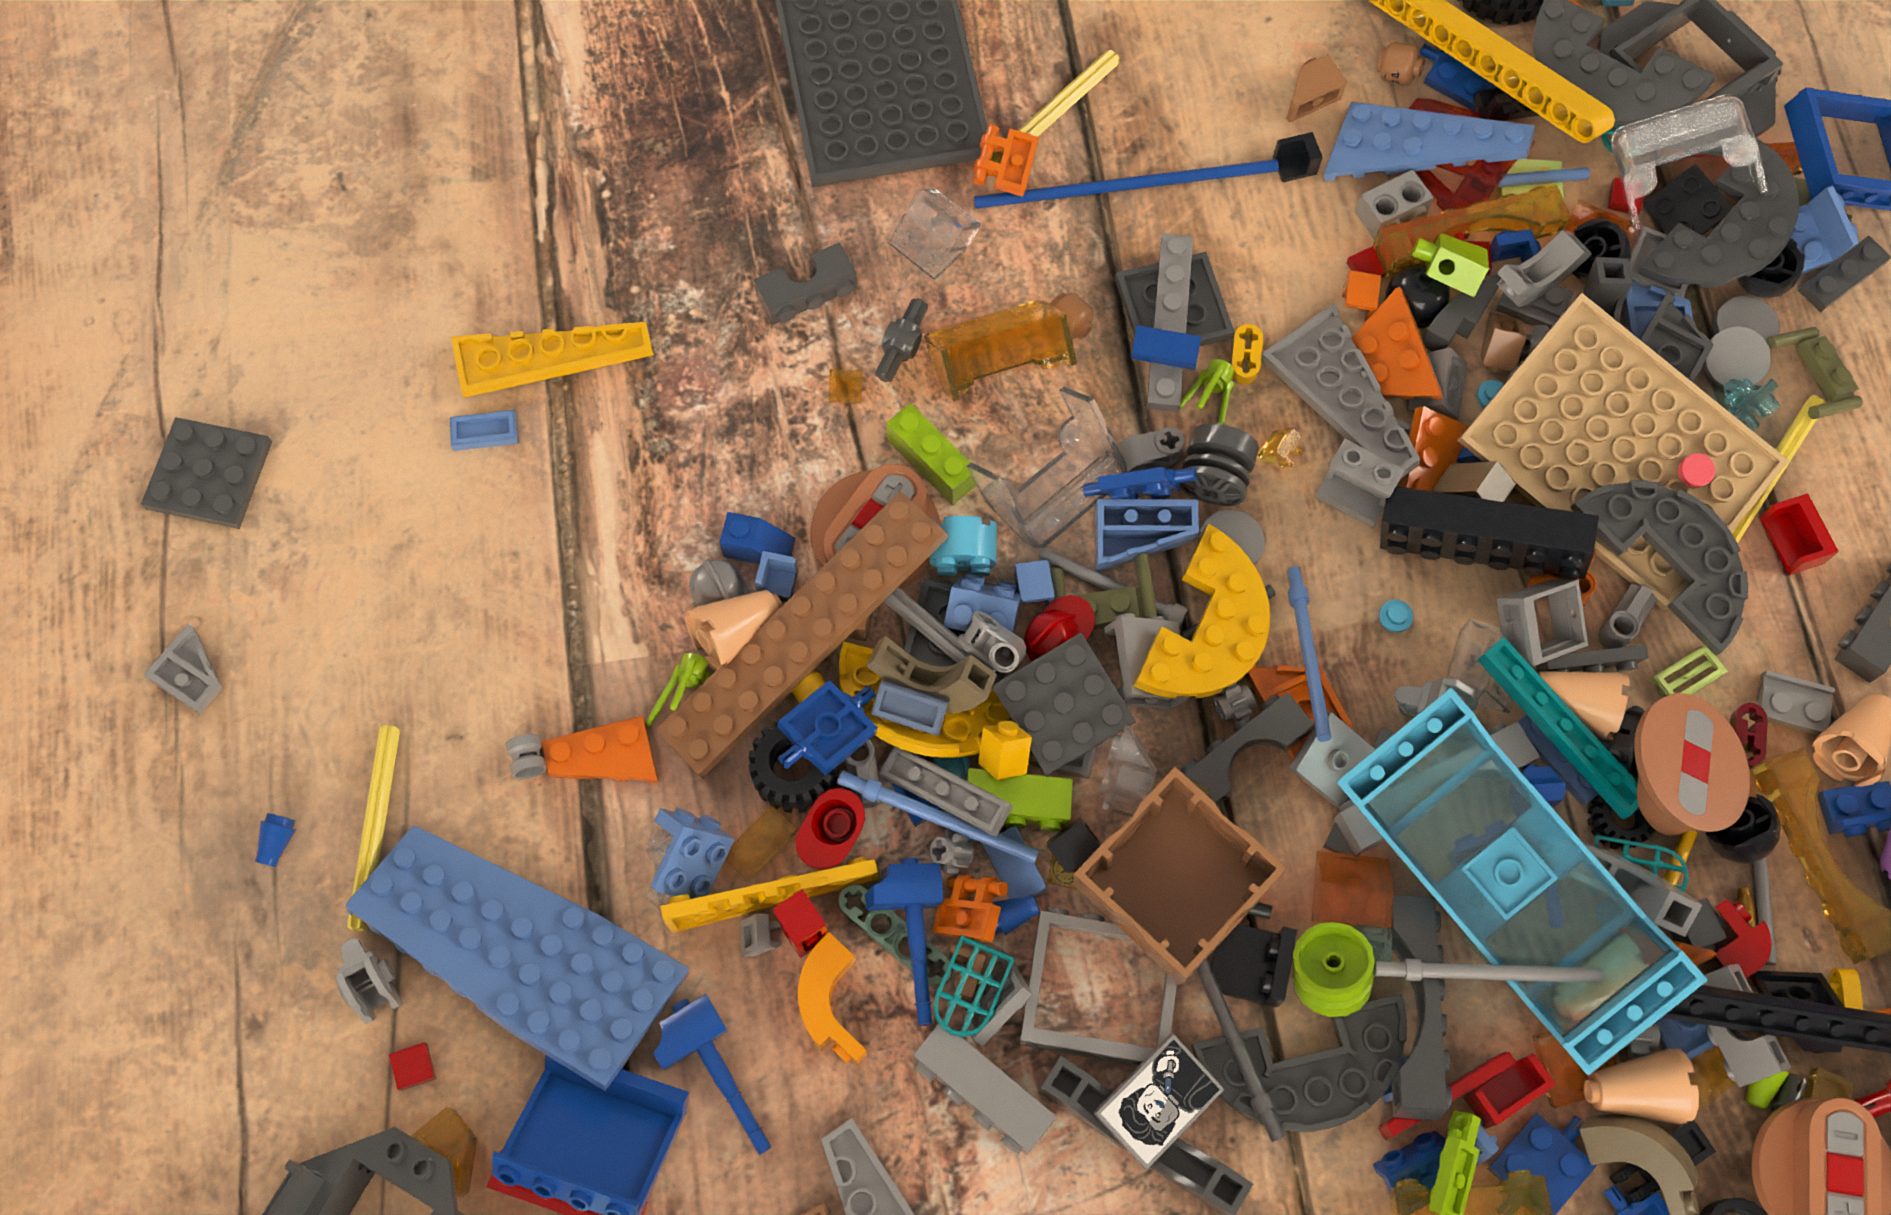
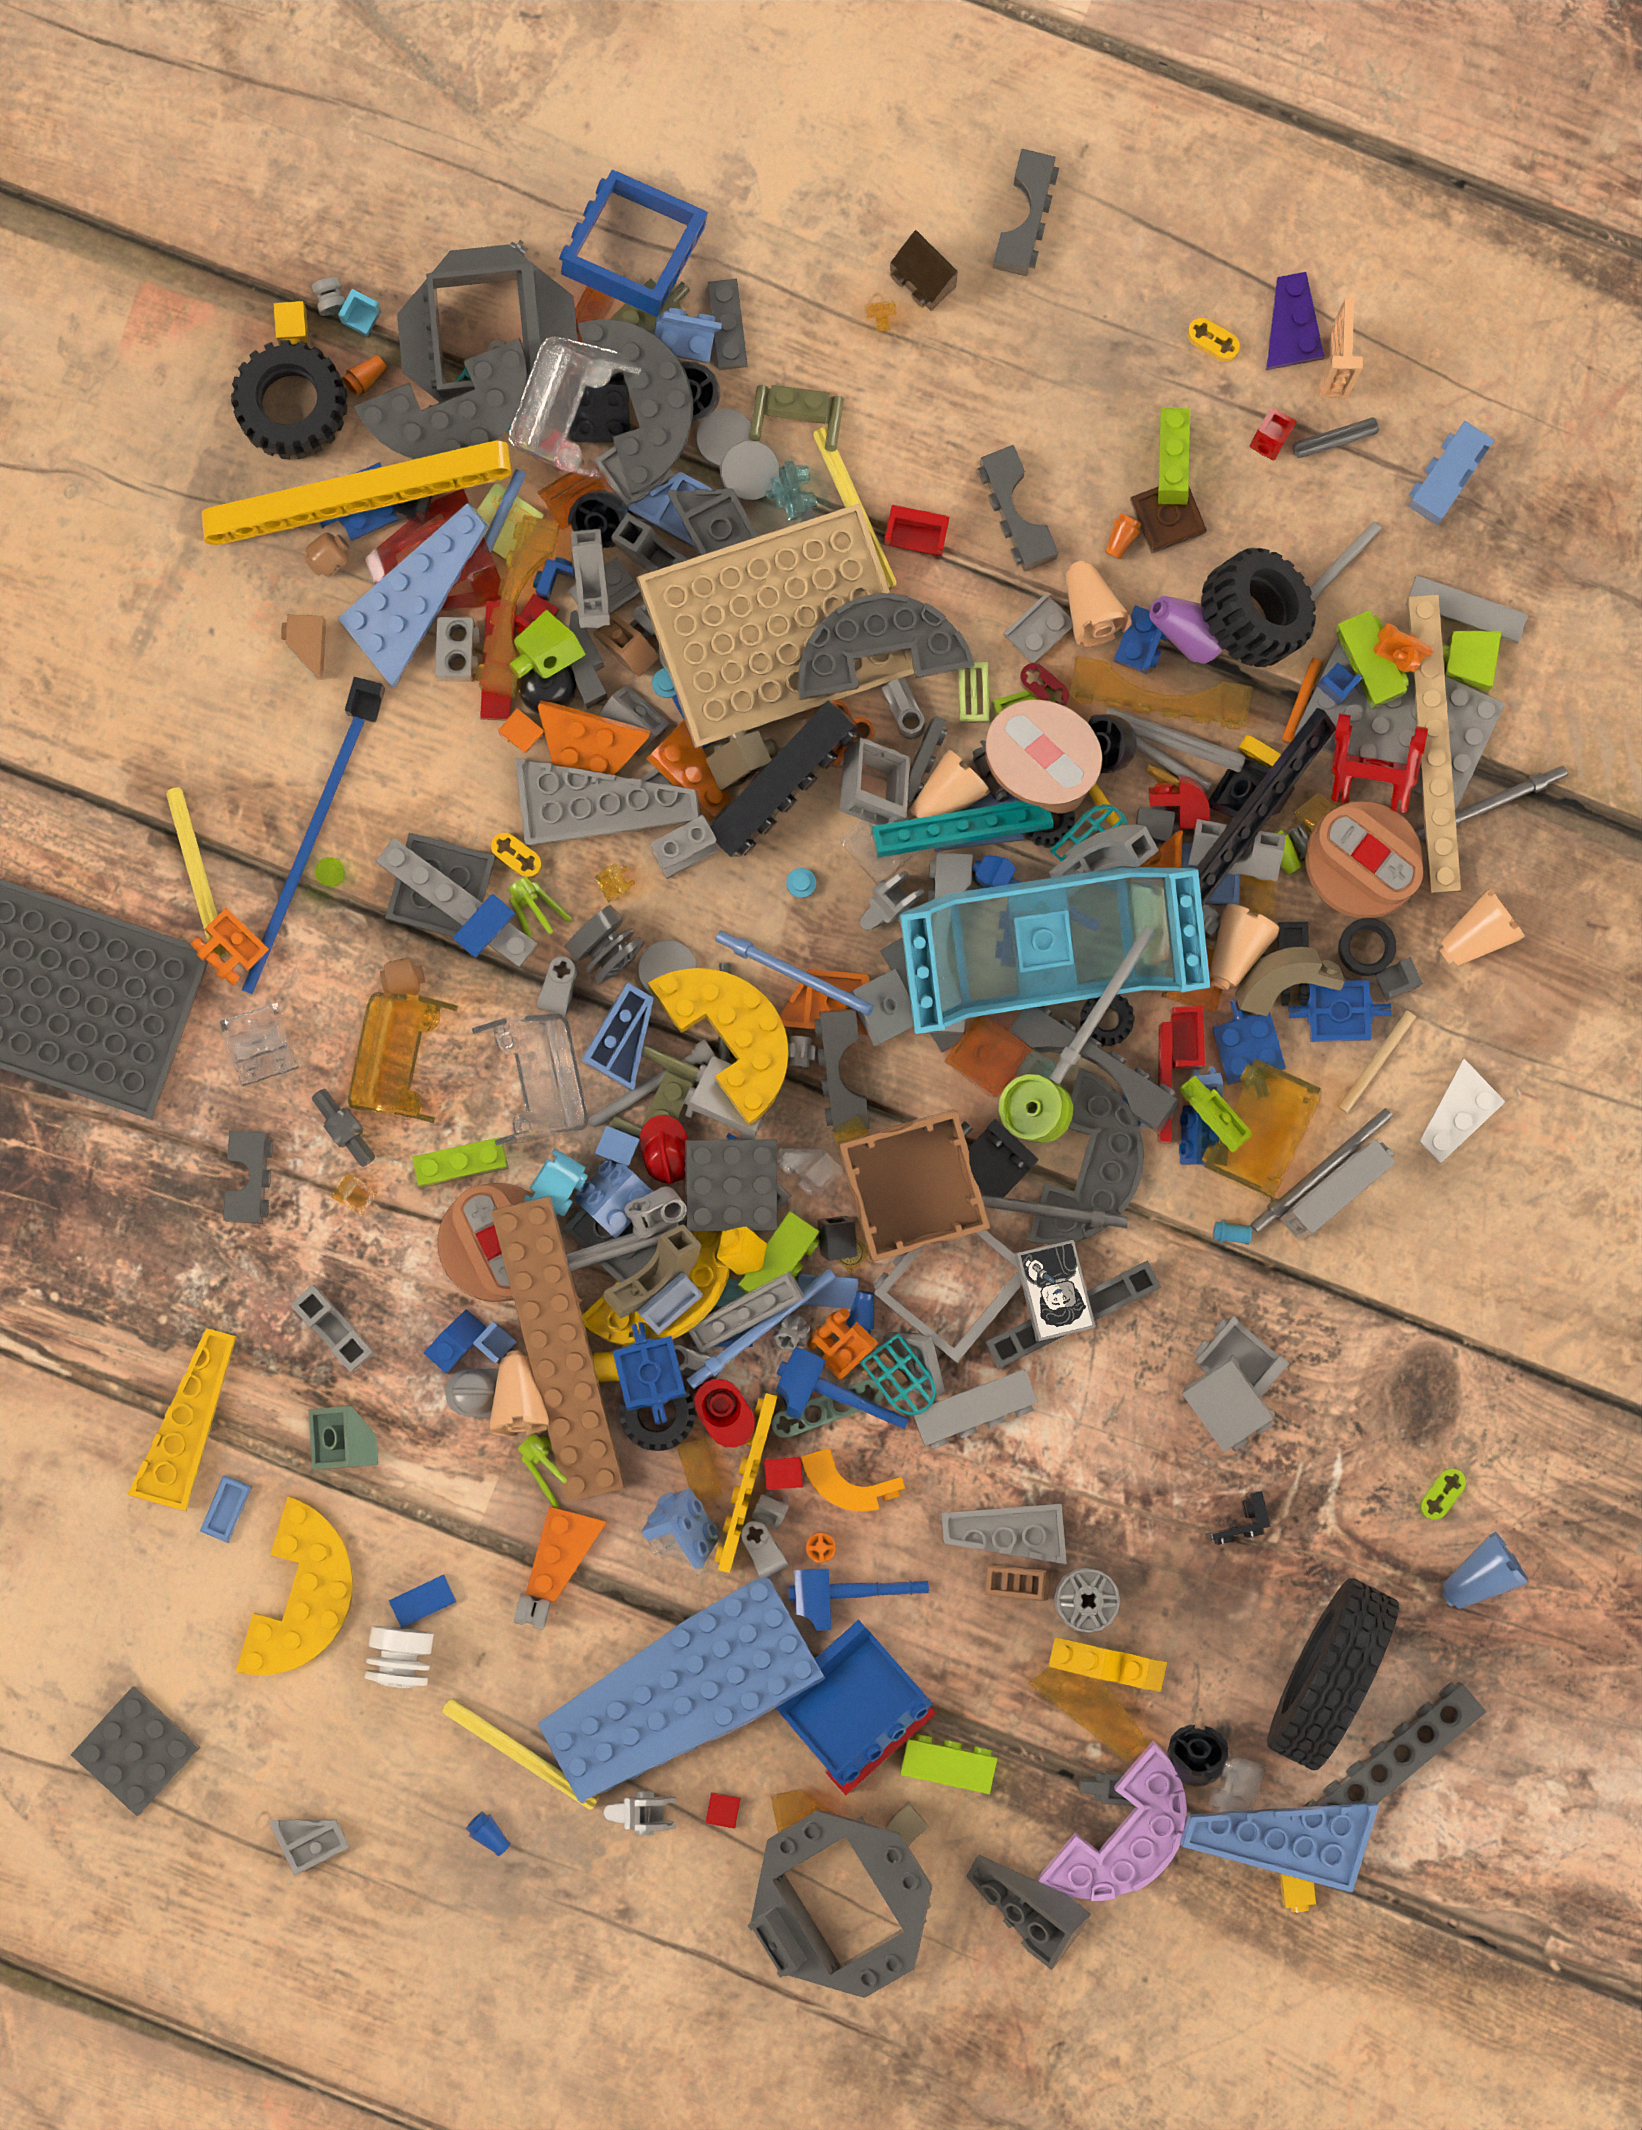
camera: 60 degrees left, 15 degrees up
(412, 650) = (399, 1656): none -> white wheel
(436, 554) = (317, 1597): none -> yellow plate
(485, 650) = (422, 1601): none -> blue tile
(604, 492) = (341, 1439): none -> sand green slope
(700, 444) = (333, 1328): none -> light grey arch
(709, 954) = (765, 1553): none -> light grey piece
(742, 1004) = (823, 1549): none -> orange wheel
(1125, 212) = (329, 872): none -> clear neon green tile
(1130, 485) = (594, 1012): blue plate -> none
(1475, 1016) = (1124, 1025): none -> black tyre
(1696, 470) = (827, 583): coral tile -> none
(1799, 914) = (1181, 741): none -> light grey axle

